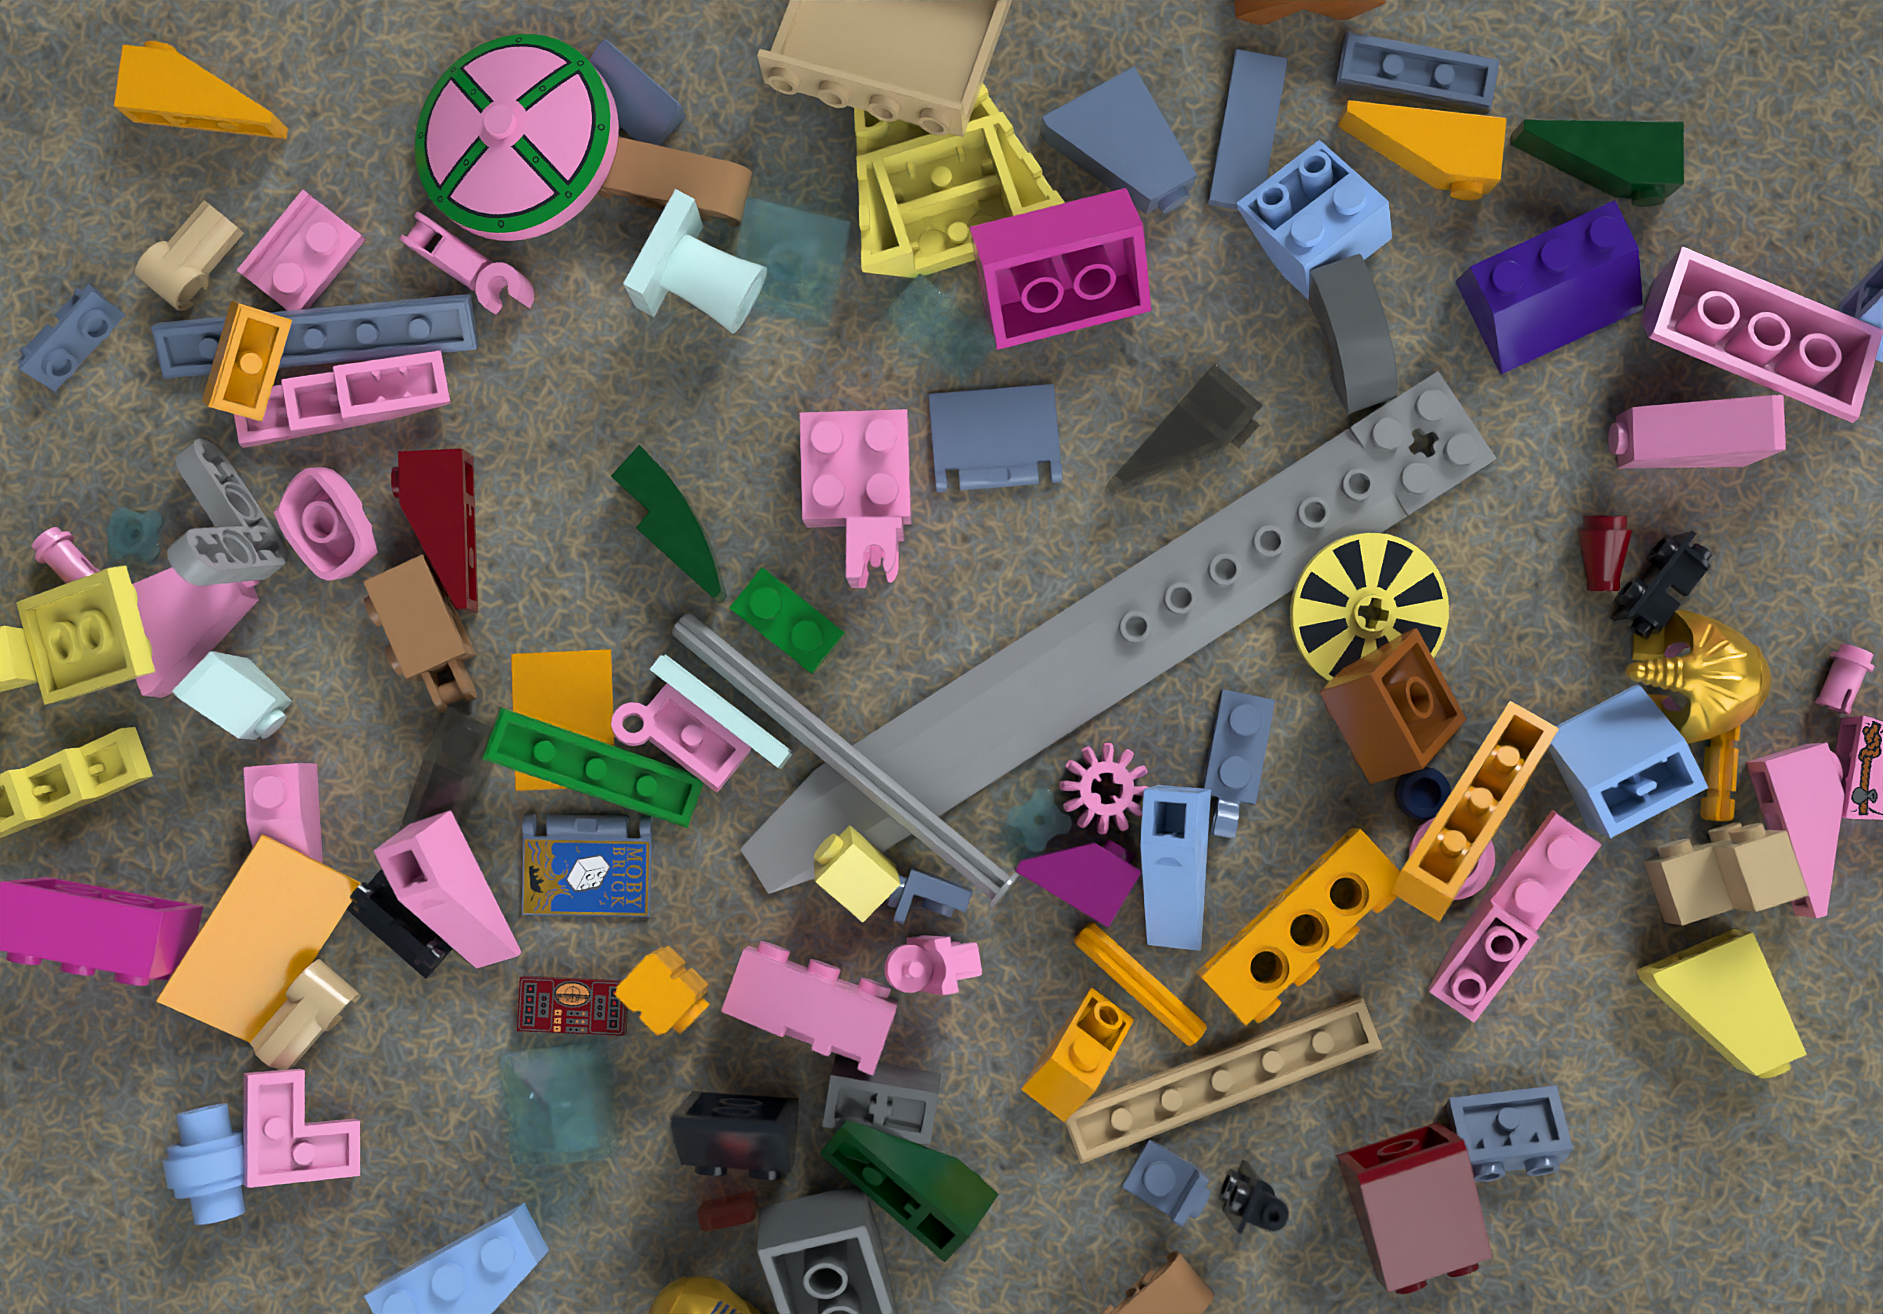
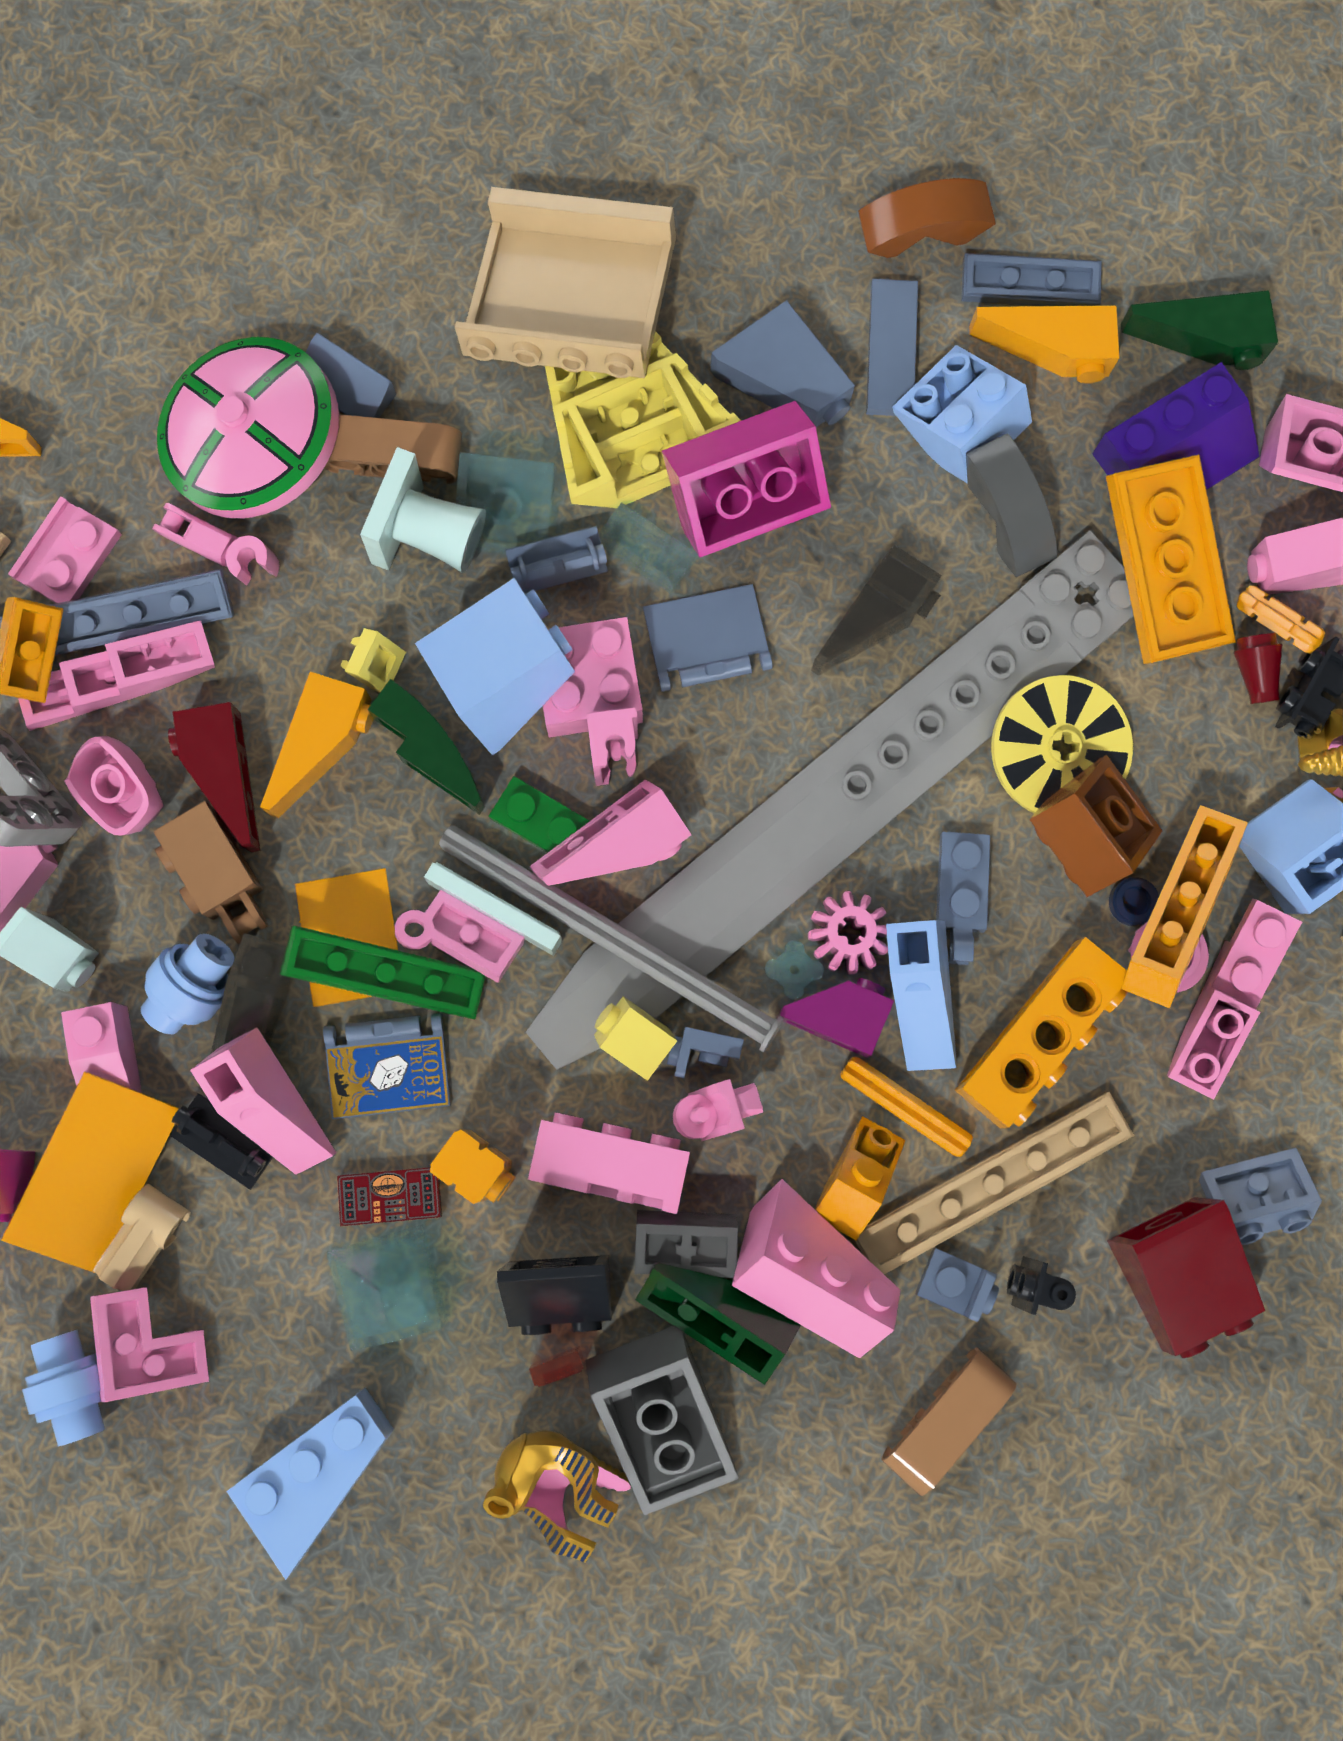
camera: 15 degrees left, 5 degrees down
(381, 751) = (186, 984): none -> light blue piece
(556, 494) = (318, 737): none -> light orange slope
(624, 419) = (374, 660): none -> light yellow tile
(757, 445) = (498, 662): none -> light blue slope
(839, 330) = (557, 559): none -> sand blue hinge
(869, 653) = (622, 837): none -> bright pink slope
(1013, 1151) = (814, 1273): none -> bright pink wedge
(1522, 417) = (1170, 559): none -> light orange tile
(1635, 500) = (1280, 619): none -> light orange axle

